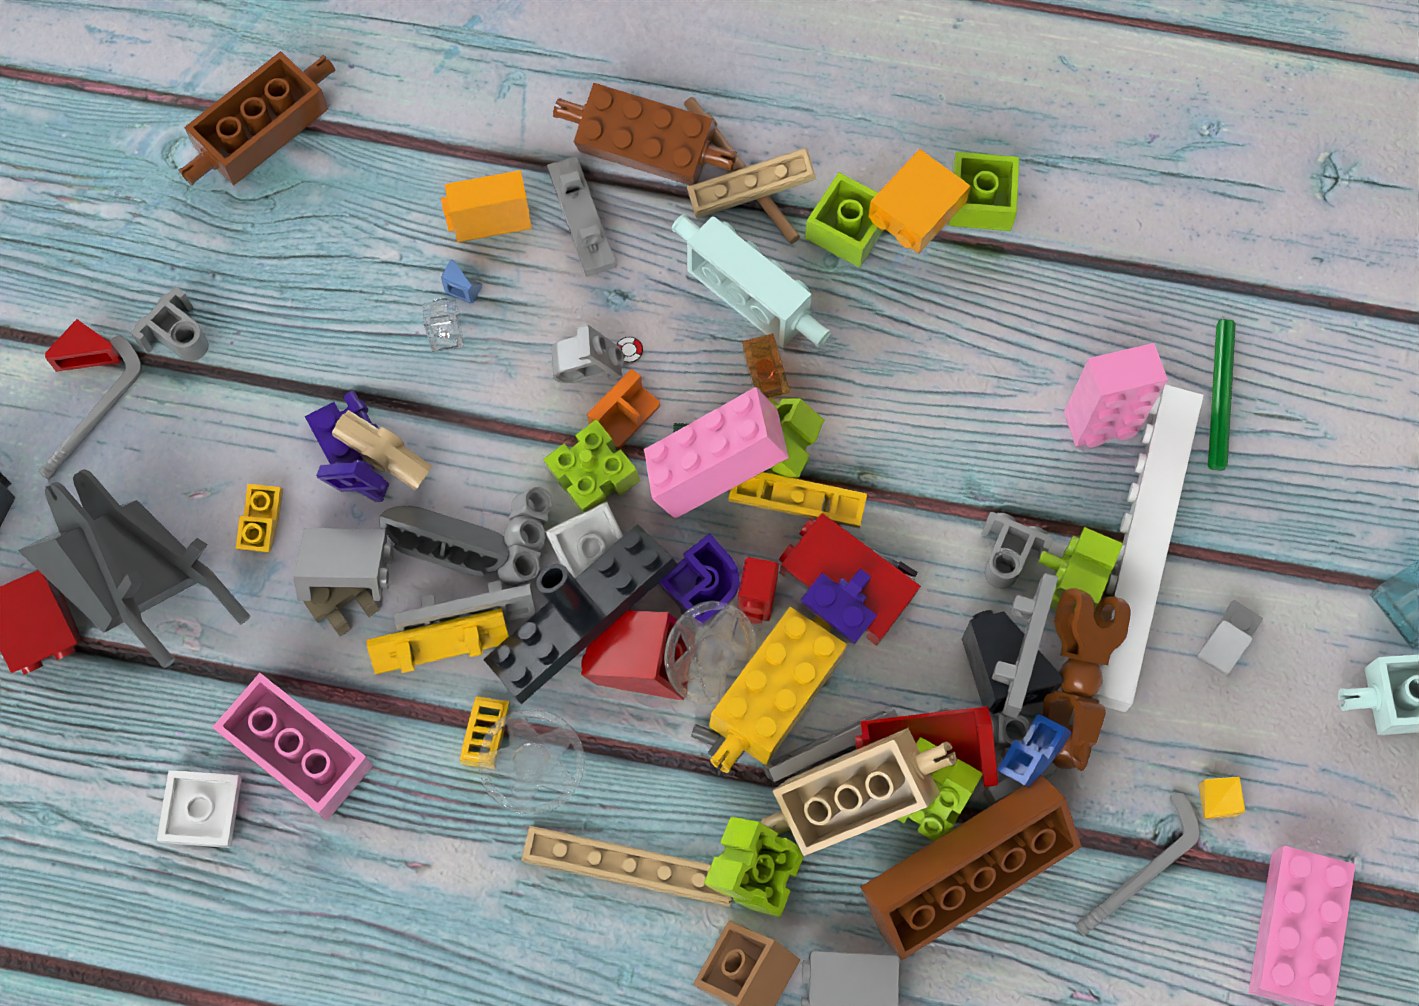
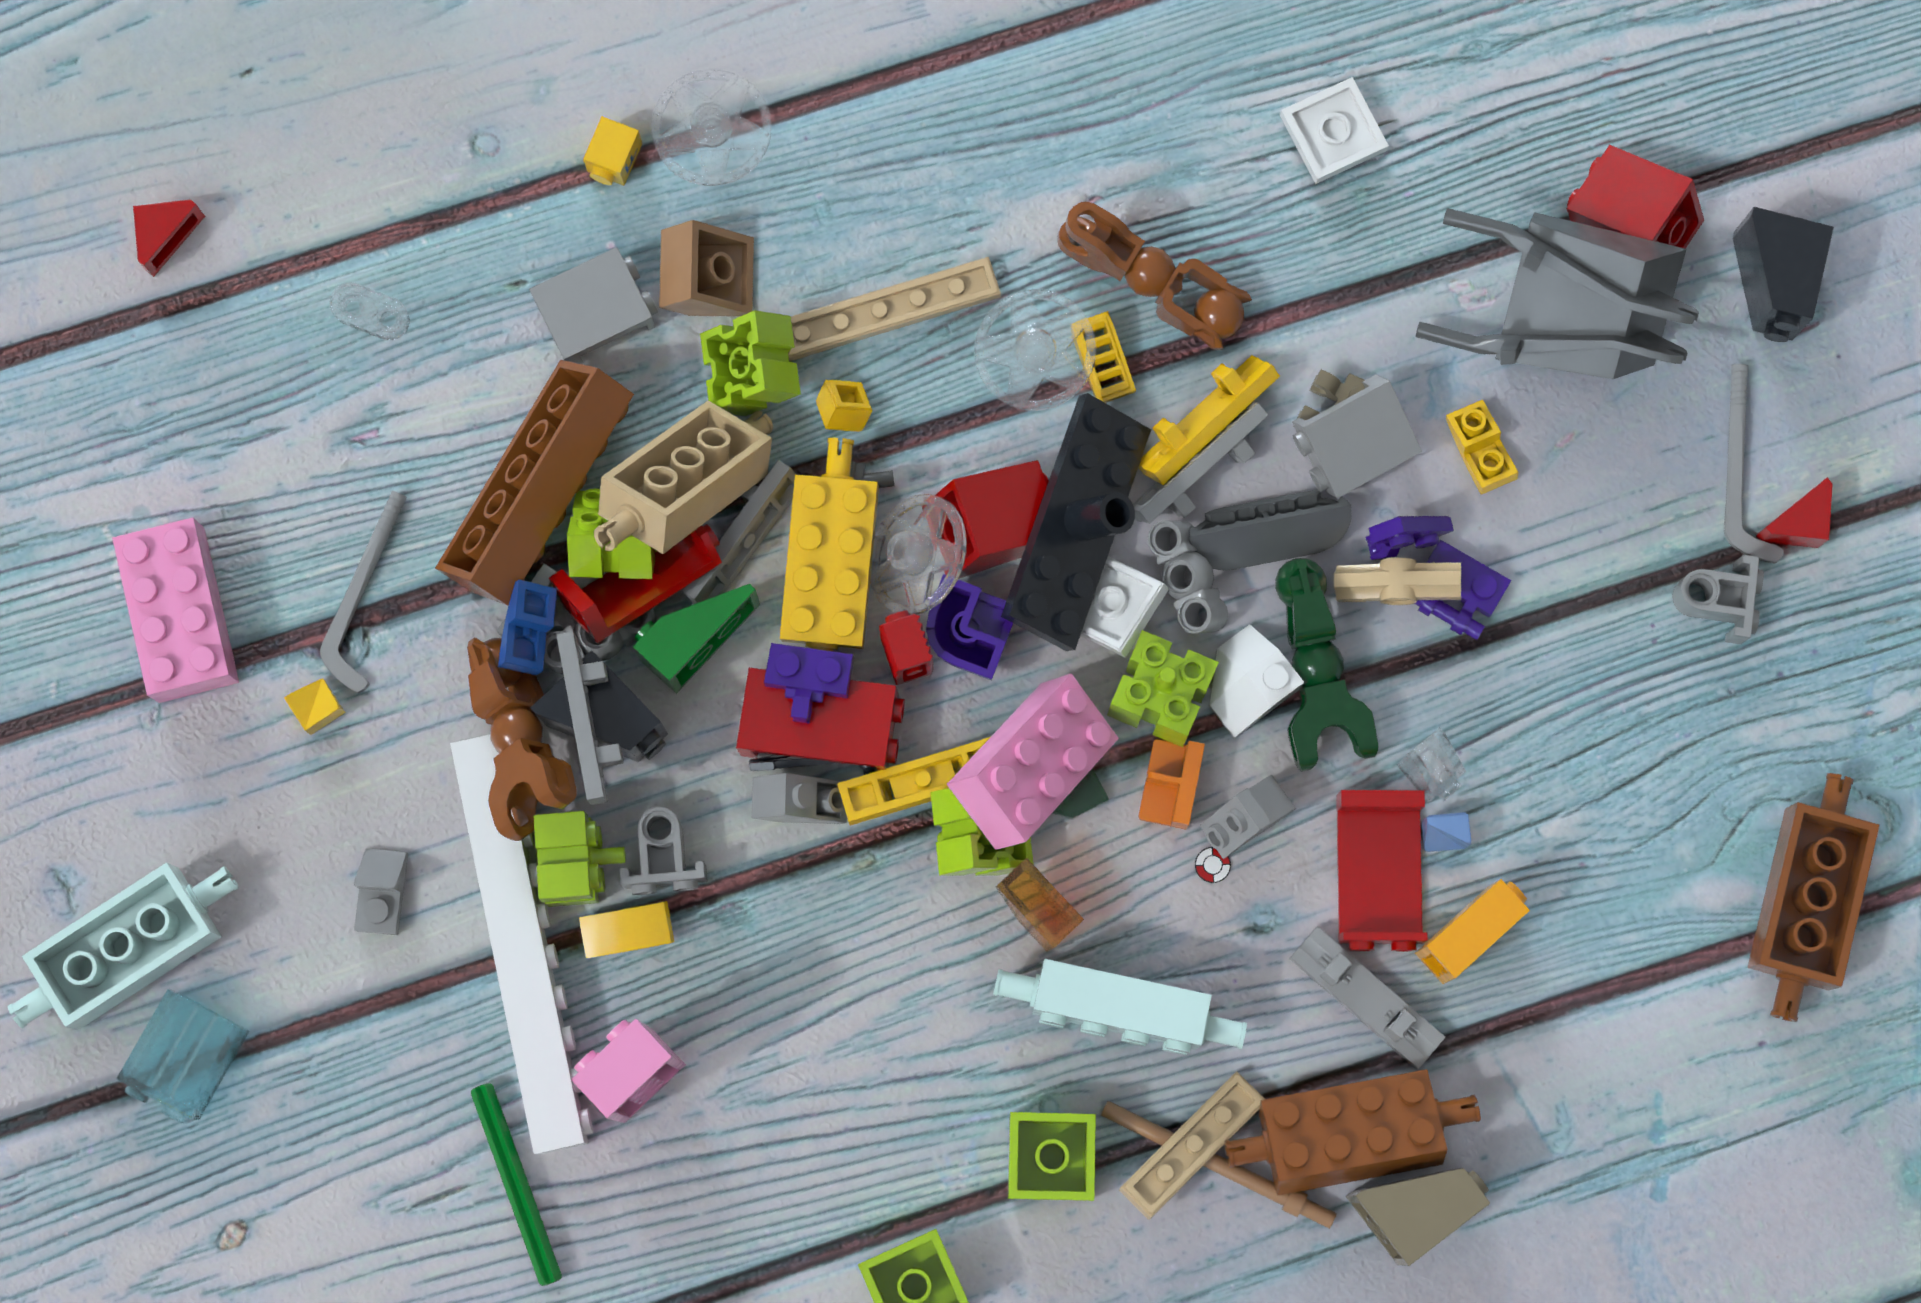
camera: 150 degrees right, 10 degrees up
(293, 746) = (1281, 231): bright pink brick -> none
(406, 766) = (1150, 272): none -> dark orange piece
(475, 427) = (1320, 665): none -> dark green piece
(521, 284) = (1379, 869): none -> red panel
(521, 445) = (1250, 680): none -> white slope
(630, 63) = (1419, 1211): none -> dark tan slope
(699, 806) = (843, 405): none -> yellow slope
(894, 535) = (797, 799): none -> light grey slope
(910, 685) = (689, 637): none -> green slope
(918, 201) = (976, 1200): light orange brick -> none
(1061, 511) = (626, 929): none -> yellow slope

